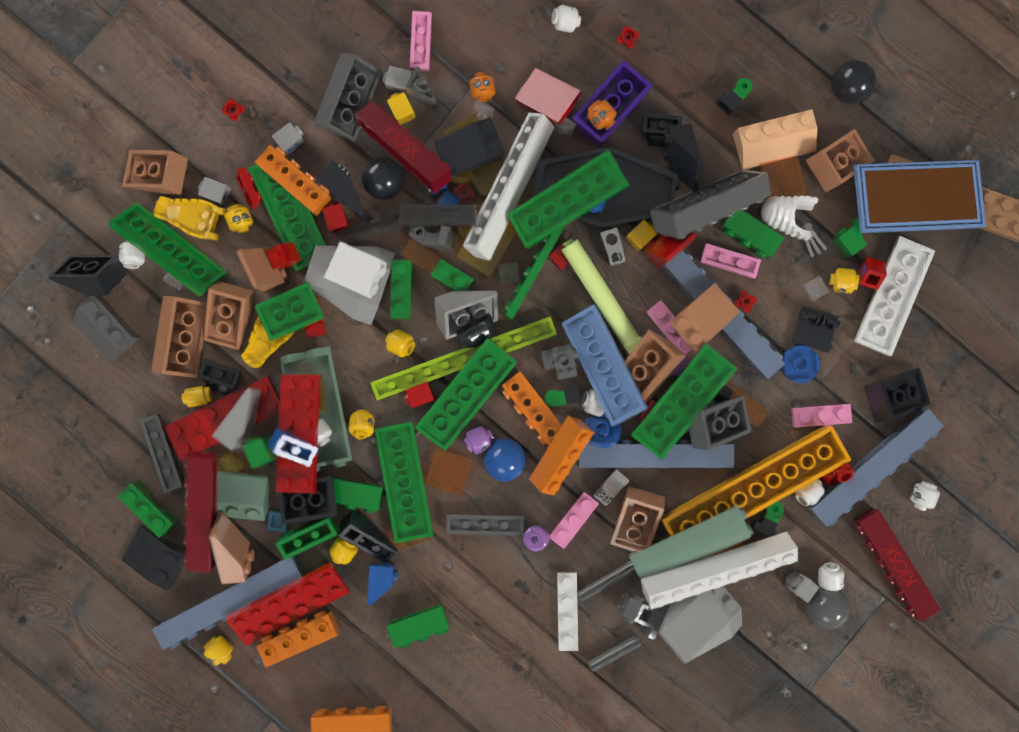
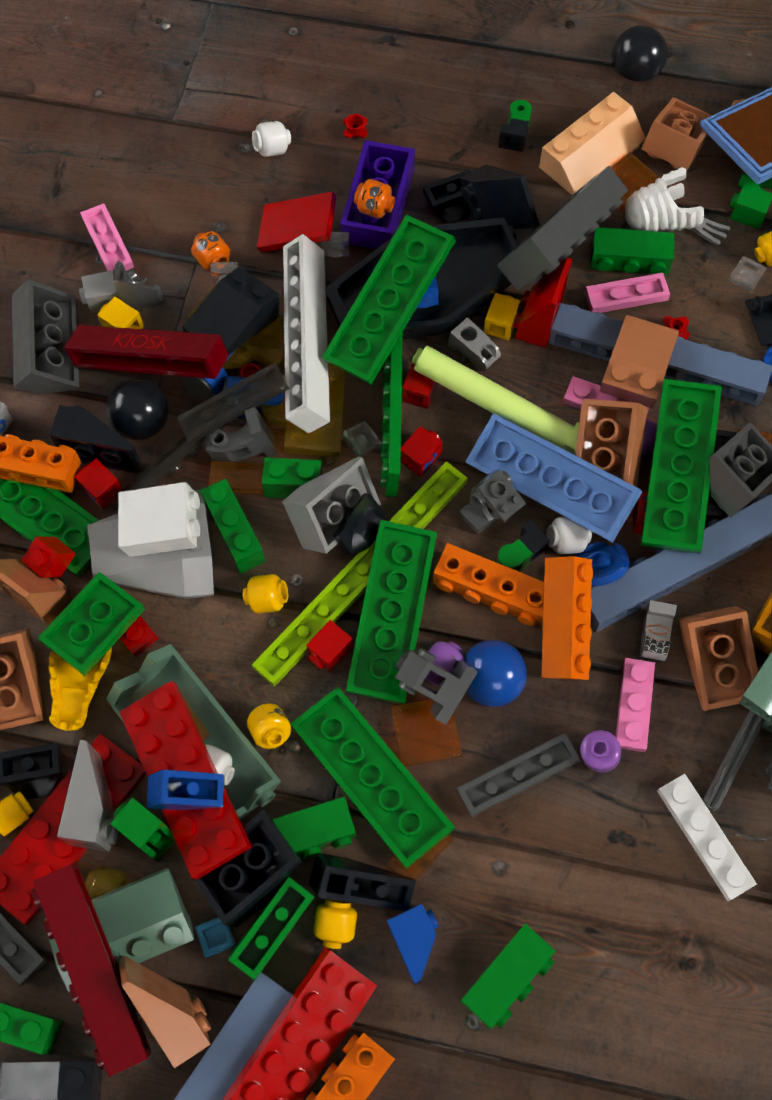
camera: 20 degrees left, 20 degrees down
(458, 441) = (413, 670): none -> dark grey tile
(540, 300) = (421, 450): none -> red brick

